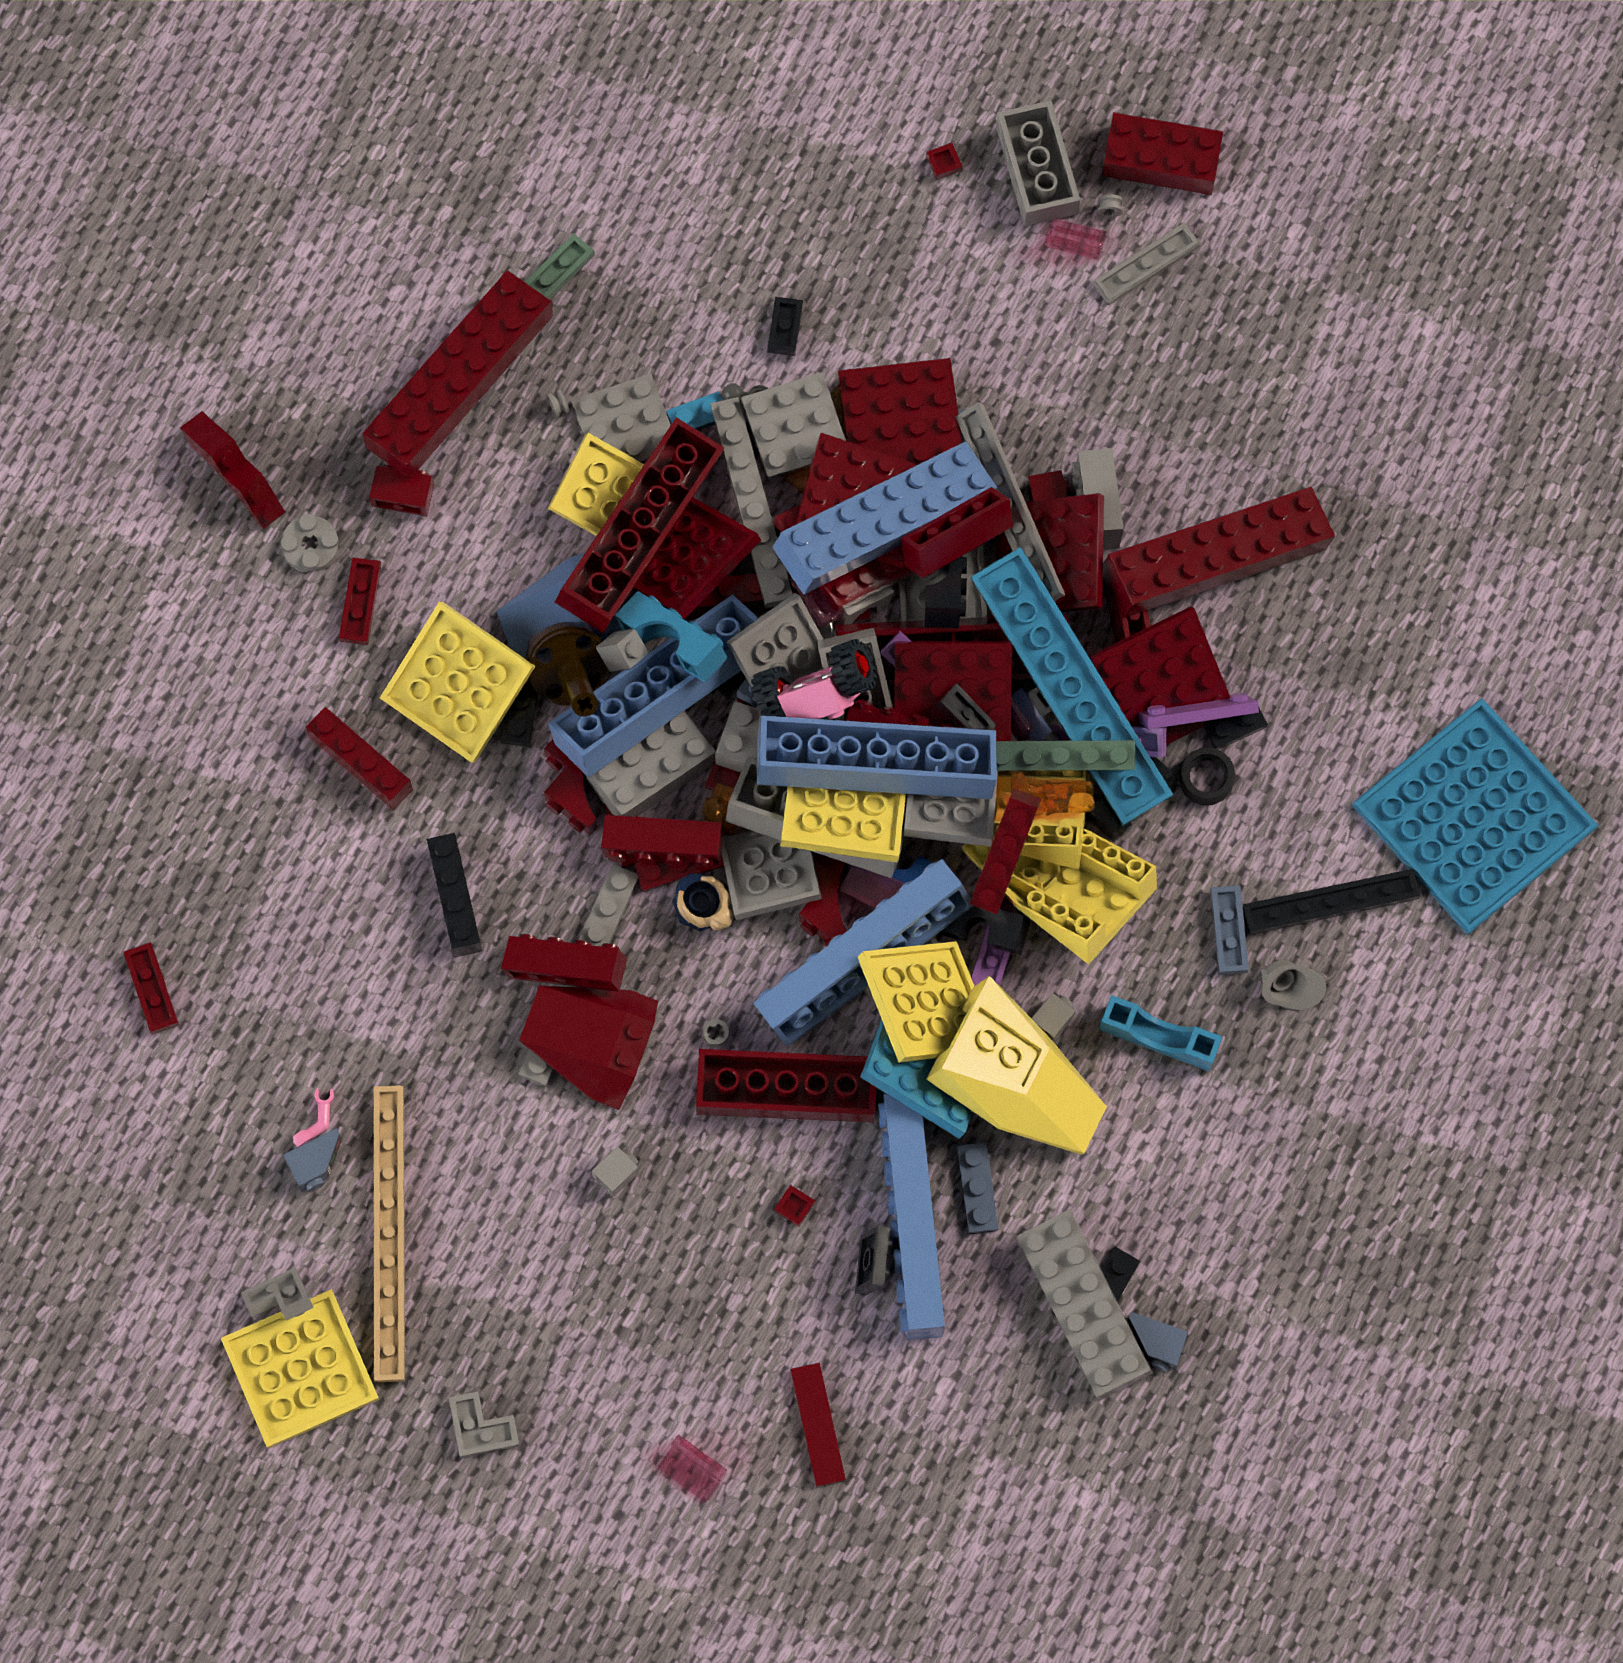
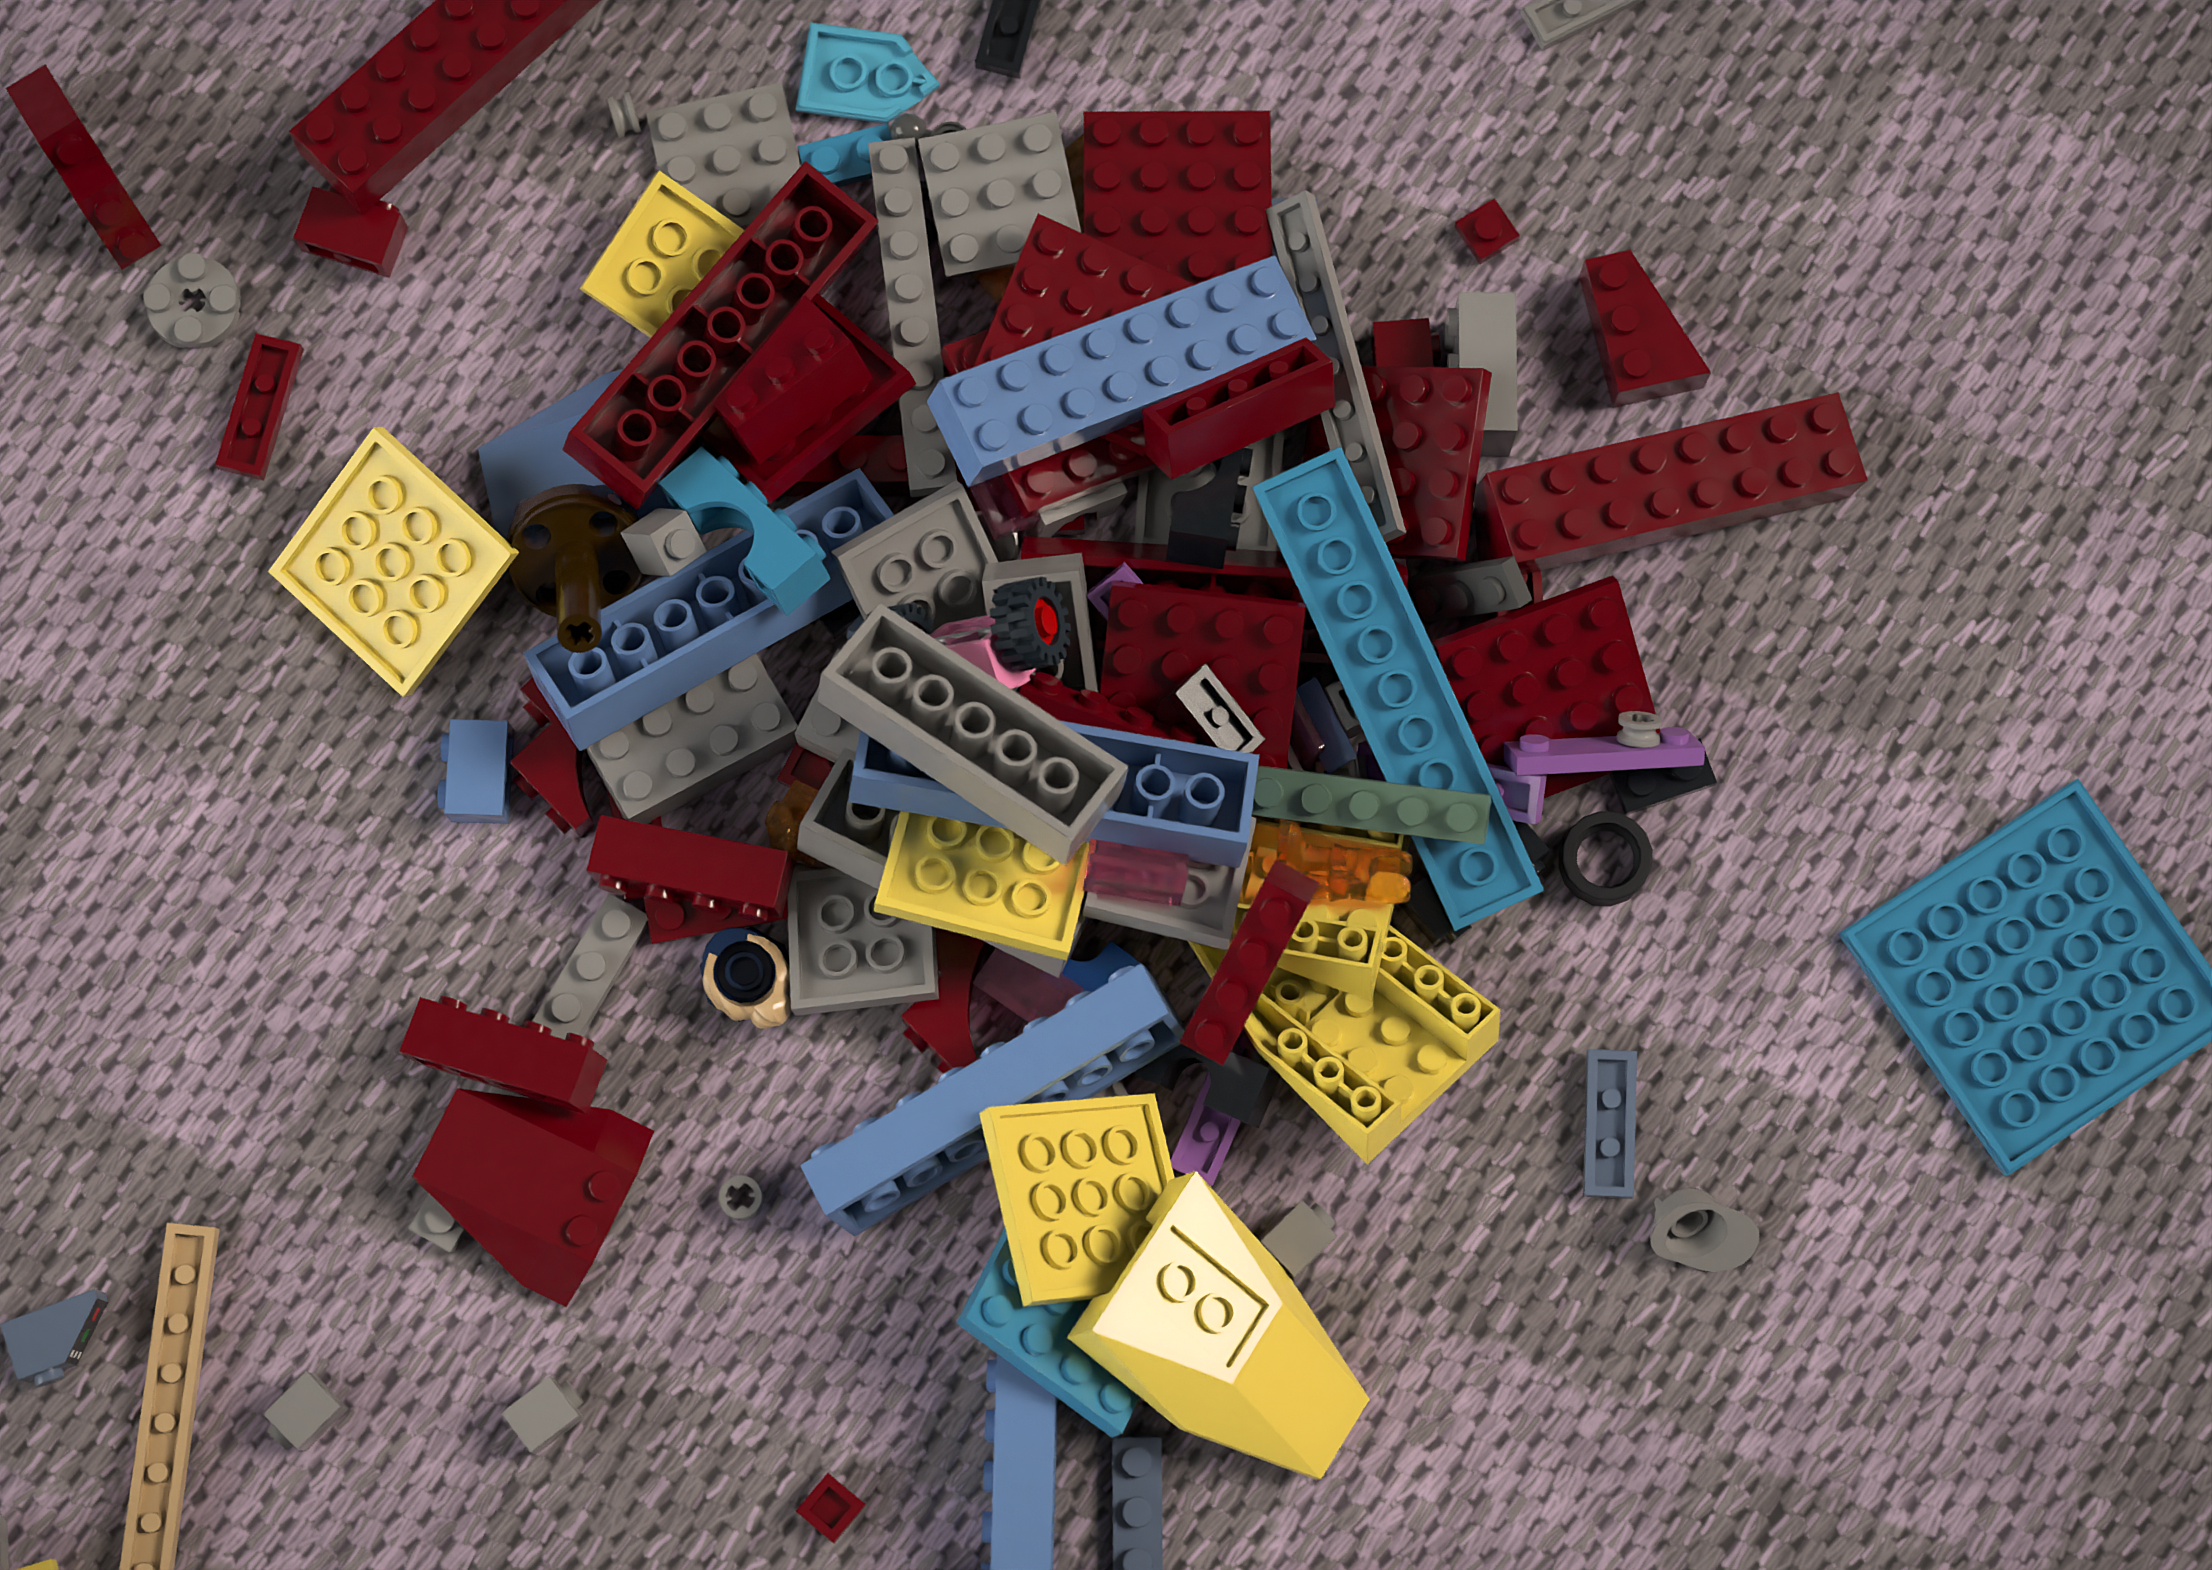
camera: 10 degrees right, 5 degrees up
(323, 1121) = (50, 1291): bright pink arm -> none
(359, 758) = (219, 669): dark red brick -> none
(454, 895) = (341, 932): black arch -> none
(471, 1187) = (304, 1413): none -> light grey brick
(520, 719) = (492, 632): black plate -> none
(524, 801) = (477, 771): none -> medium blue brick
(687, 547) = (791, 382): none -> dark red wedge
(698, 363) = (860, 74): none -> medium azure tile
(784, 1086) = (834, 1304): dark red brick -> none
(828, 732) = (972, 733): none -> light grey brick
(931, 807) = (1135, 872): none -> clear pink panel
(1089, 415) = (1487, 231): none -> dark red plate
(1107, 625) = (1469, 589): none -> dark grey plate
(1182, 1043) = (1473, 1291): dark azure arch -> none
(1187, 466) = (1636, 333): none -> dark red wedge
(1217, 695) = (1639, 729): none -> light grey bush
(1331, 901) = (1785, 1095): black plate -> none

